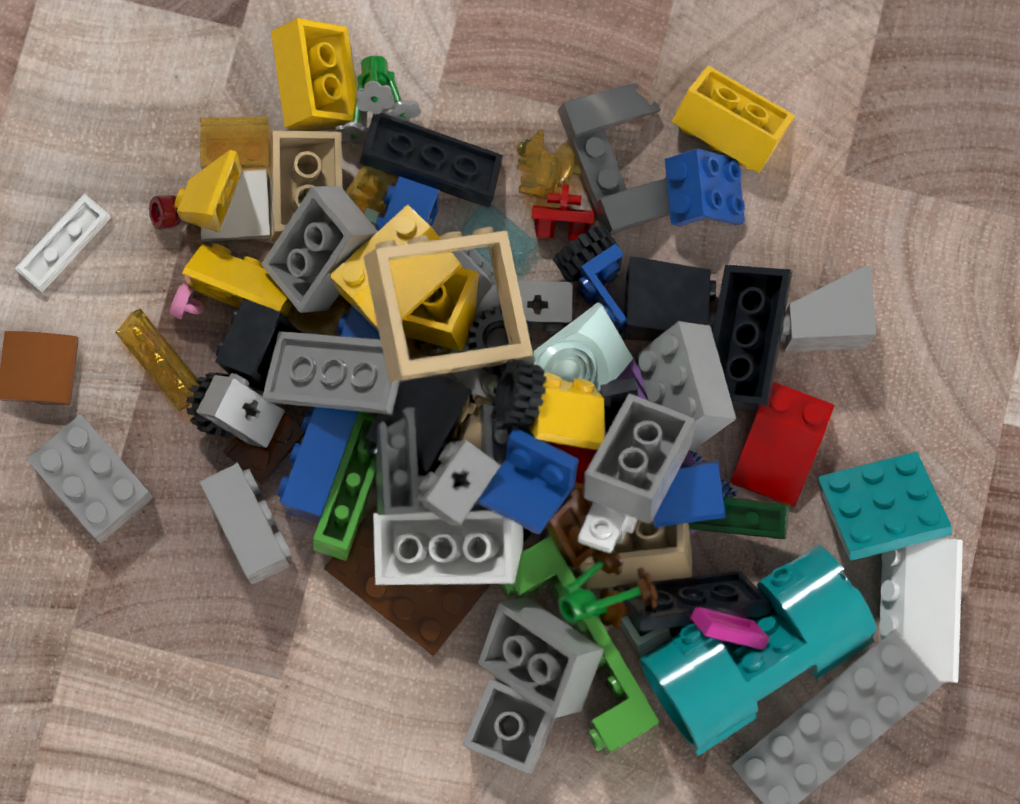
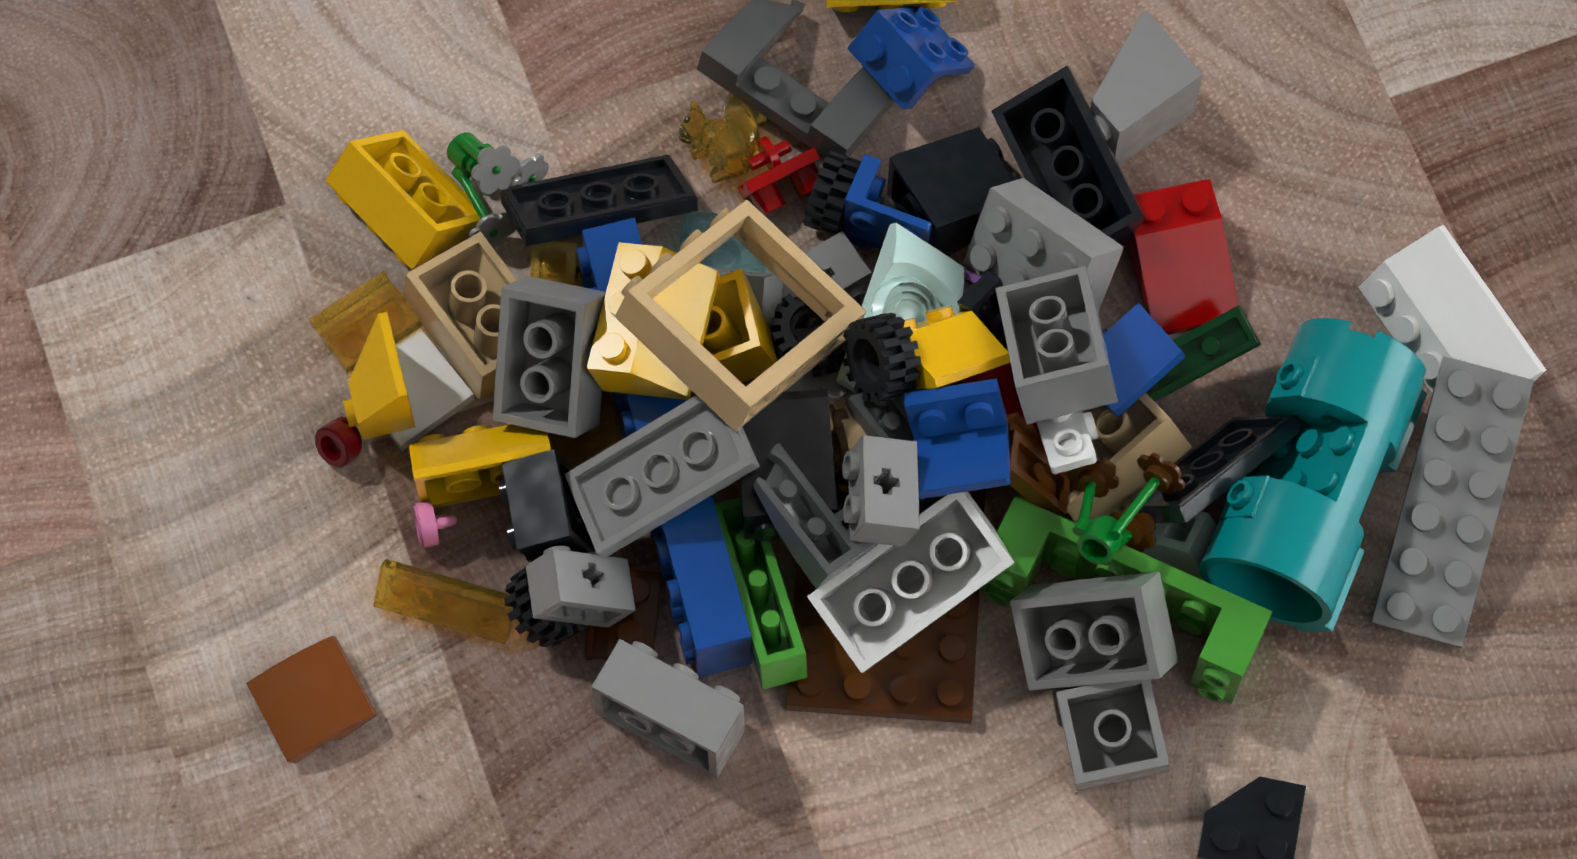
camera: 30 degrees left, 10 degrees down
(63, 243) = (245, 550): white tile -> none
(90, 478) = (457, 776): light grey brick -> none
(729, 628) = (1275, 462): dark pink tile -> none
(884, 506) = (1335, 249): teal plate -> none

